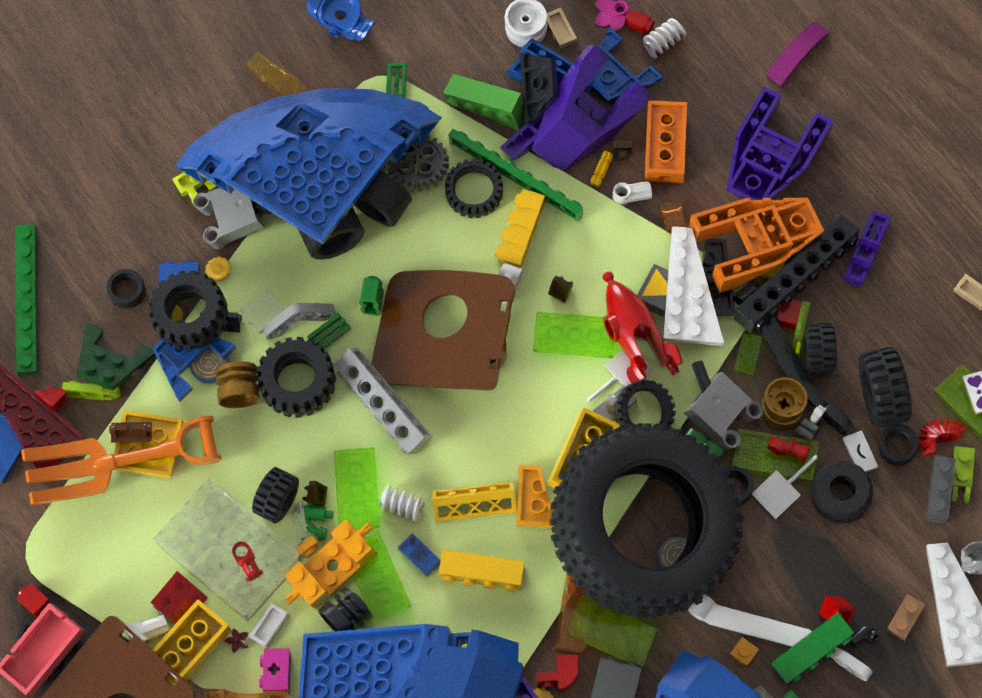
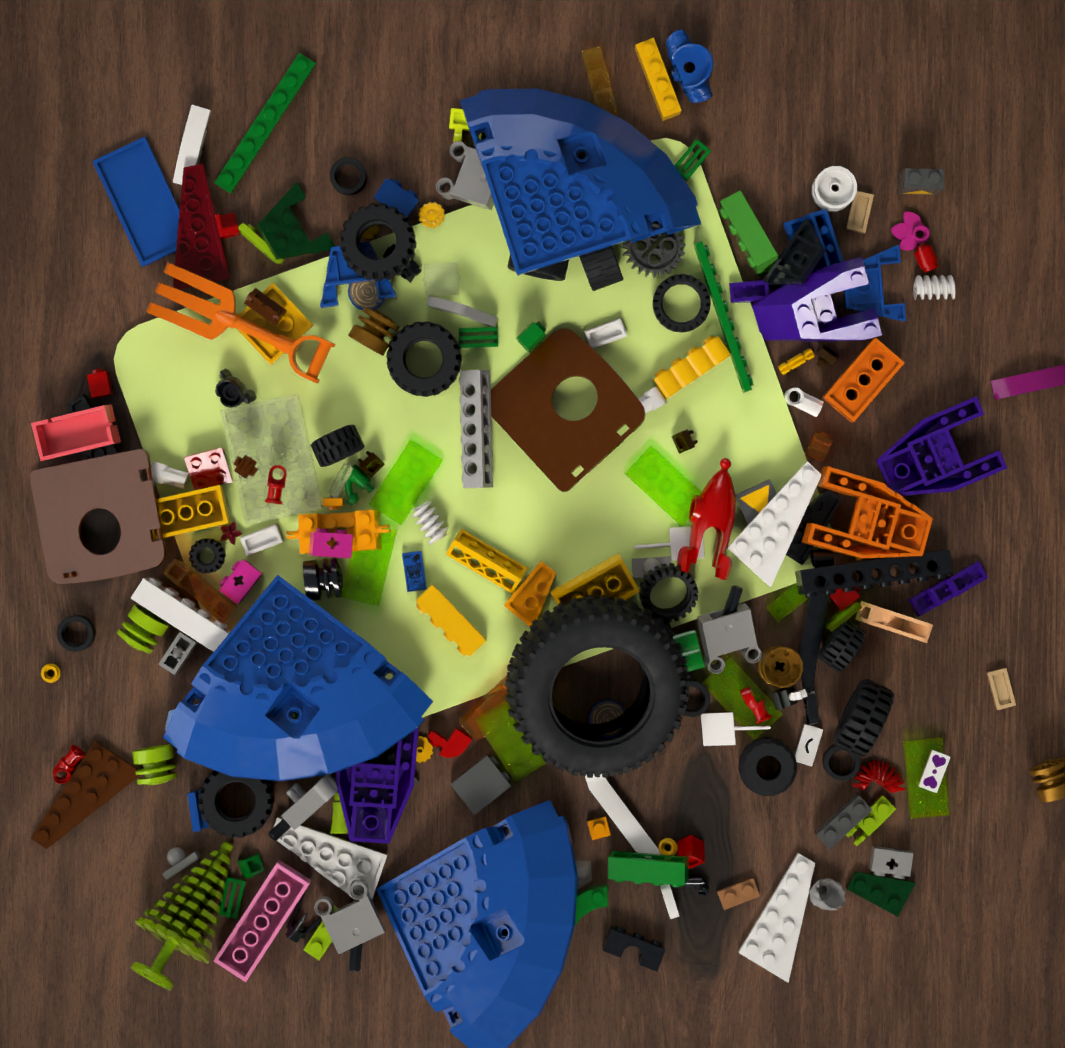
camera: 30 degrees right, 20 degrees up
(147, 515) = (227, 384): none -> black hair
(208, 563) = (245, 466): none -> reddish brown gear
(222, 663) = (195, 555): none -> black tyre
(323, 43) = (658, 79): none -> yellow brick
(323, 582) = (319, 546): none -> dark pink brick
(431, 254) = (605, 333): none -> white tile
(812, 617) = (663, 843): none -> yellow plate
(849, 301) = (894, 622): none -> light nougat arch

